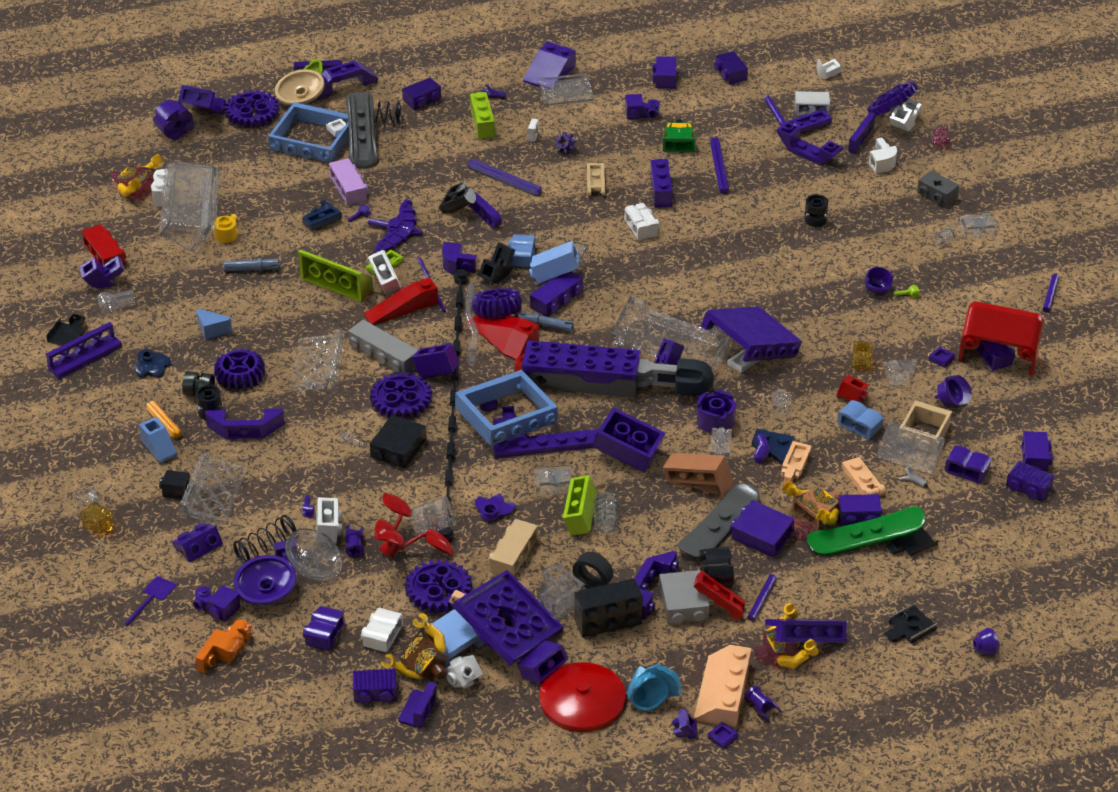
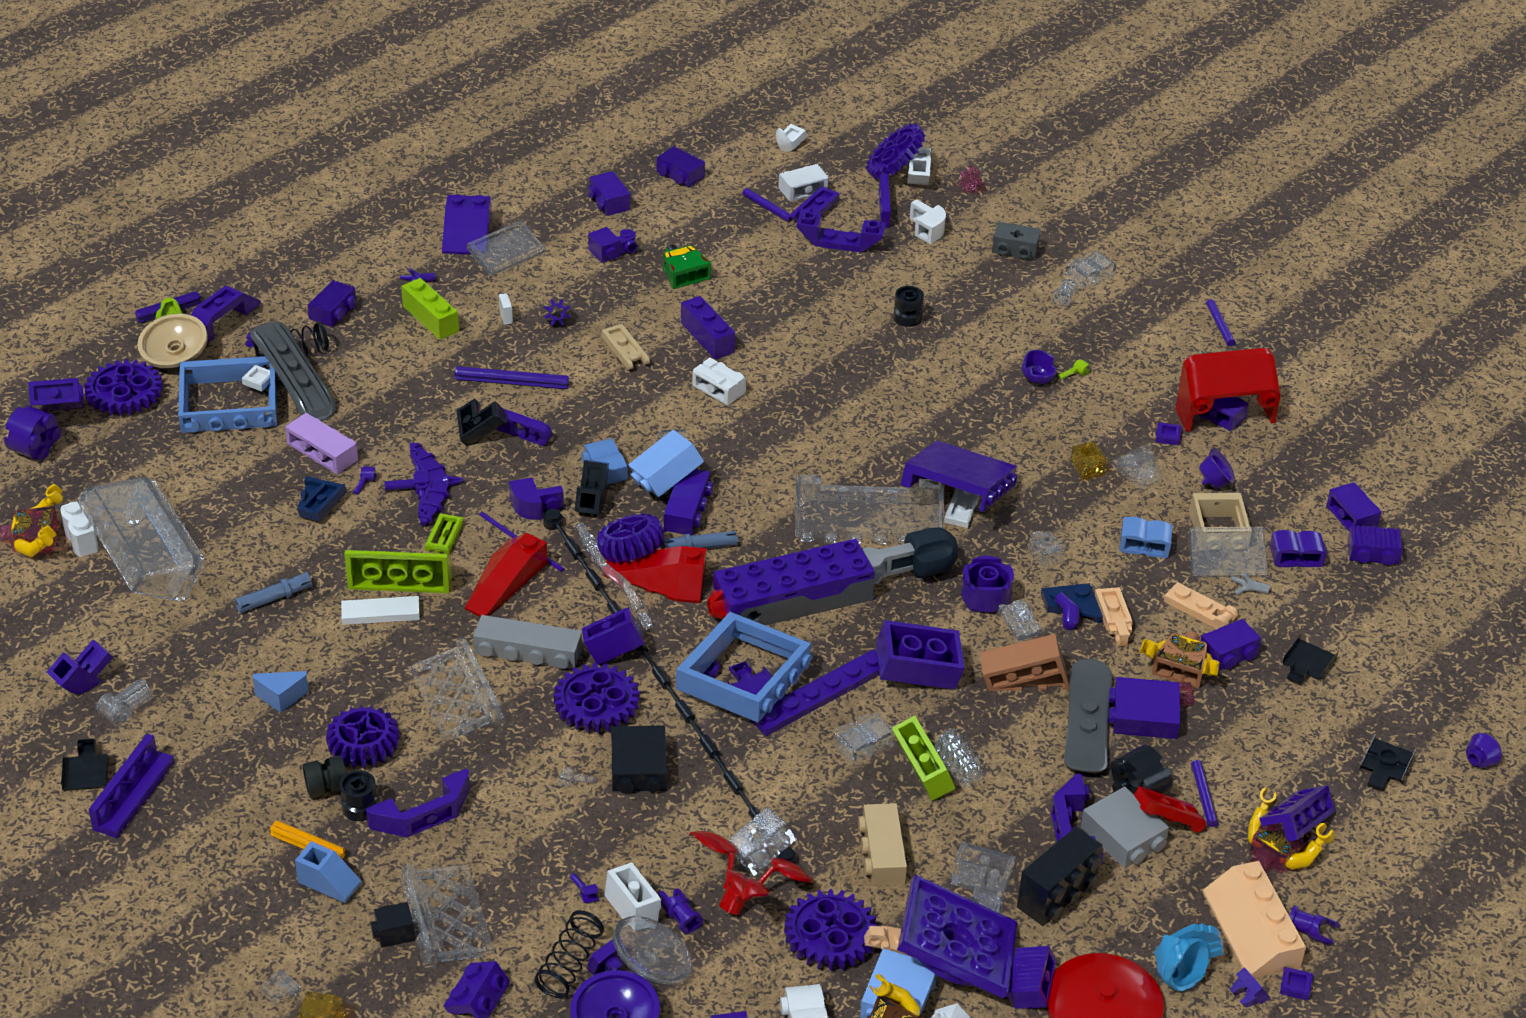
camera: 30 degrees left, 0 degrees up
(101, 244) = (51, 632): red brick -> none
(153, 364) = (237, 771): dark blue plate -> none
(226, 229) = (211, 552): yellow piece -> none
(309, 297) = (380, 610): none -> white tile
(384, 272) = (462, 544): white brick -> none
(494, 507) = (813, 798): dark purple plate -> none
(596, 562) = (1005, 822): black tyre -> none
(669, 352) = (882, 531): dark purple slope -> none
(719, 165) = (753, 286): dark purple axle -> none
(853, 389) = (1110, 504): red brick -> none
(867, 533) = (1260, 668): green piece -> none

